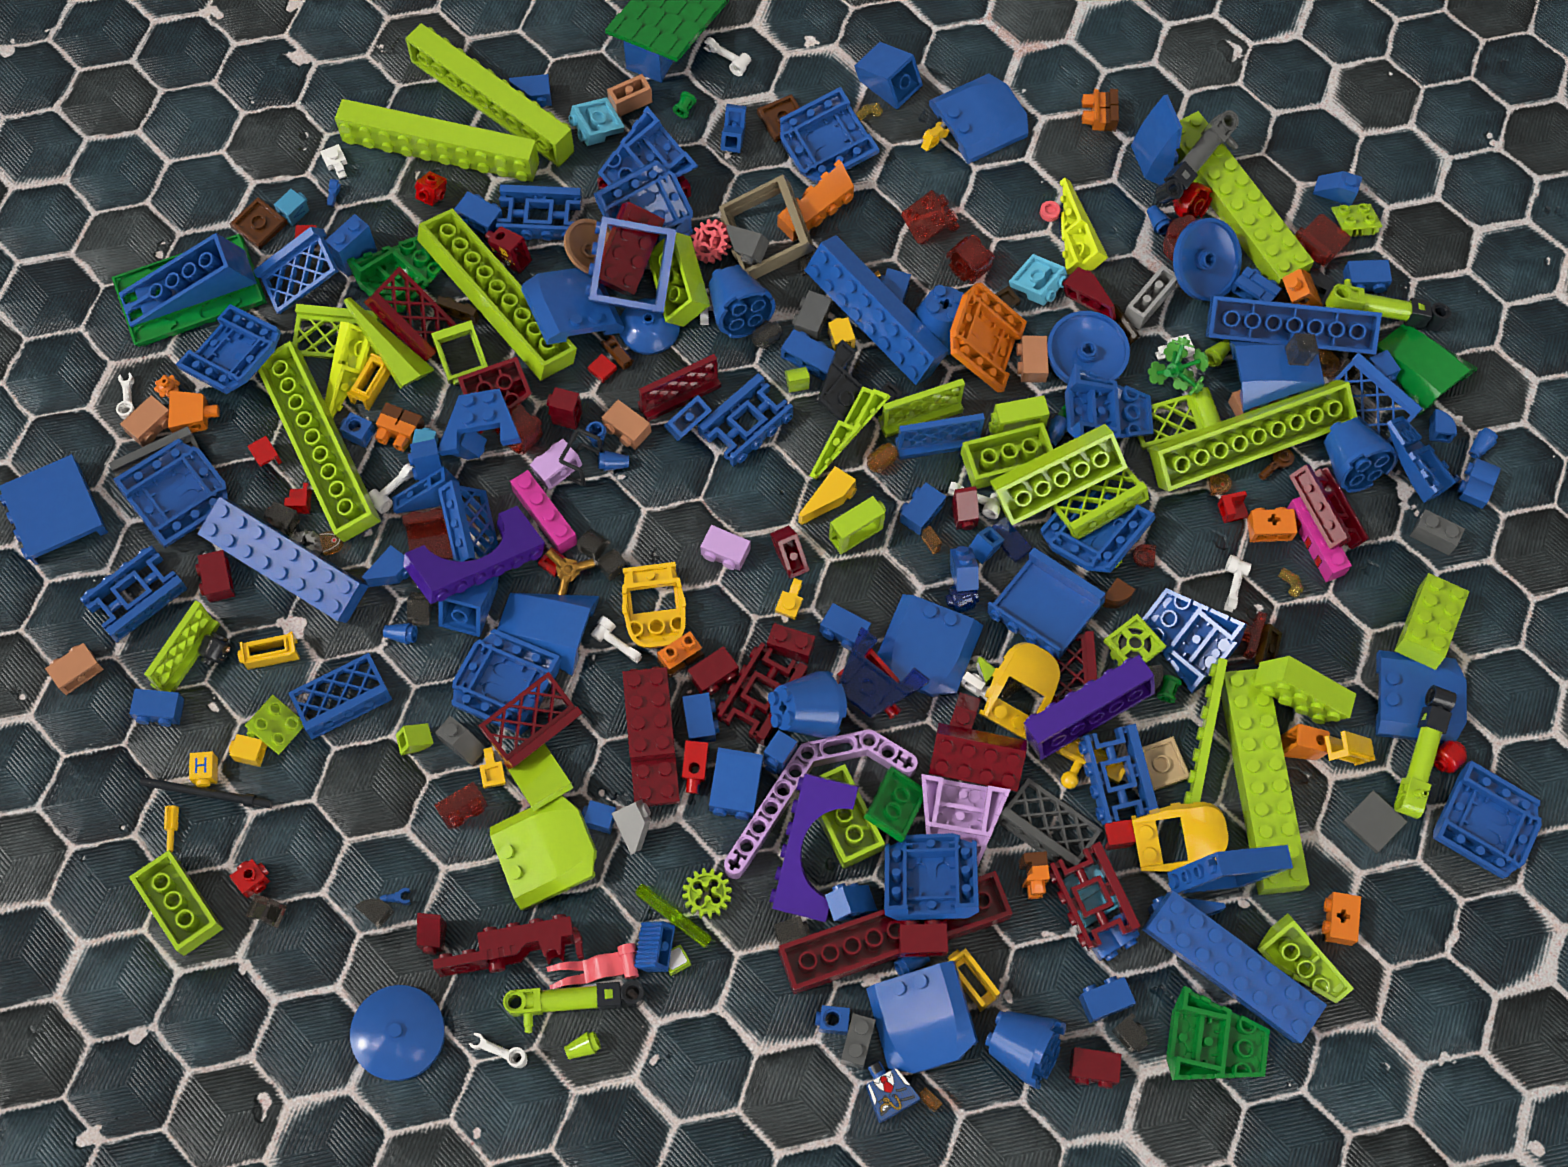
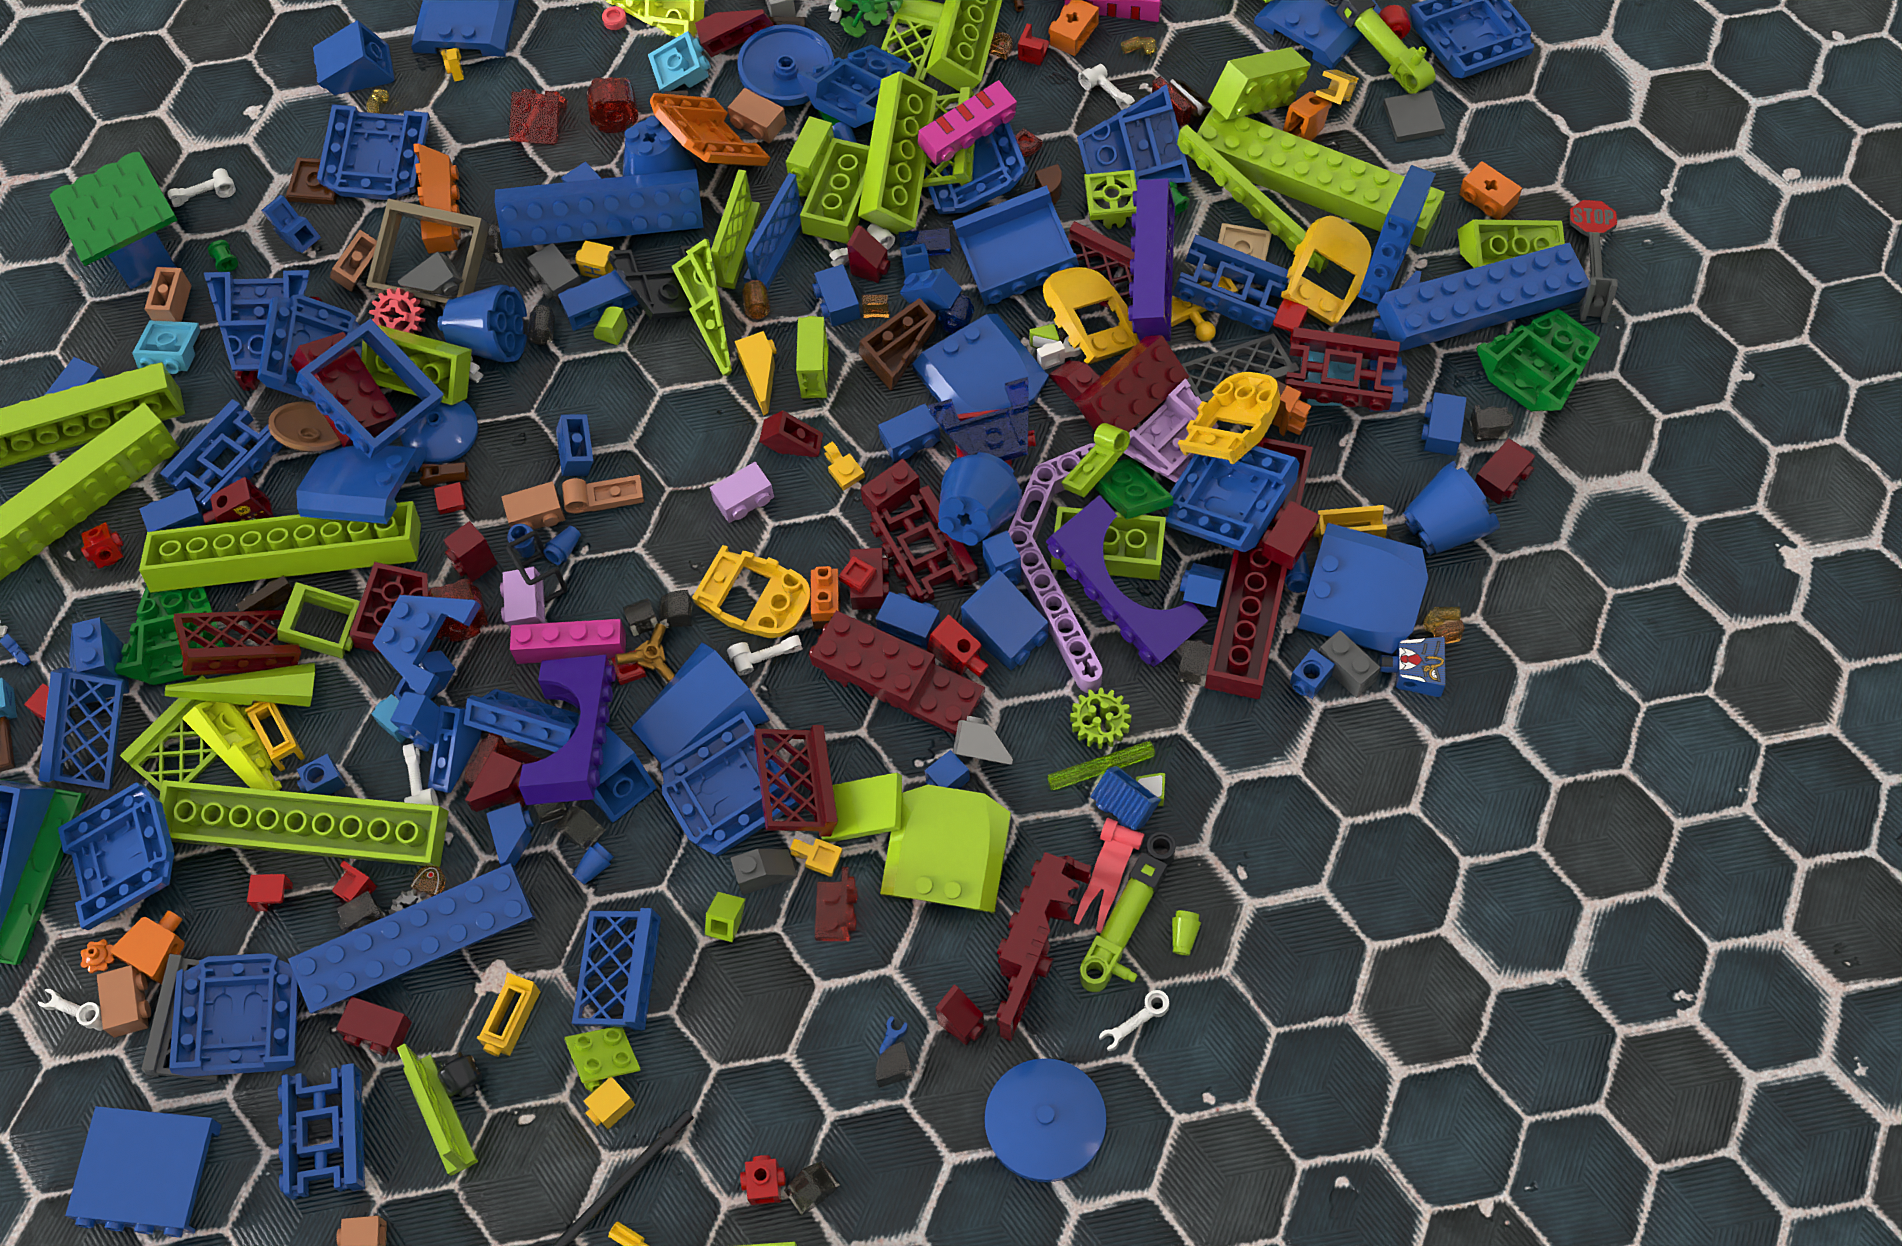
camera: 50 degrees left, 5 degrees down
(156, 707) = (481, 1179): blue brick -> none
(203, 769) = (595, 1165): yellow brick -> none
(399, 425) = (346, 742): orange hips -> none
(415, 535) = (495, 782): none -> dark red slope
(665, 460) = (601, 495): none -> nougat plate
(681, 388) = (536, 433): dark red fence -> none
(706, 663) = (857, 574): none -> red tile
(732, 186) = (354, 261): none -> nougat brick
(734, 408) = (598, 399): blue fence -> none
(899, 769) = (1109, 446): none -> lime plate
(910, 574) = (897, 342): none -> reddish brown wedge
(941, 1085) = (1439, 615): none -> clear yellow arm
(1014, 838) = (1238, 399): none -> yellow slope
(1111, 505) = (967, 123): none -> dark pink brick
(1373, 1012) = (1595, 221): none -> dark grey piece

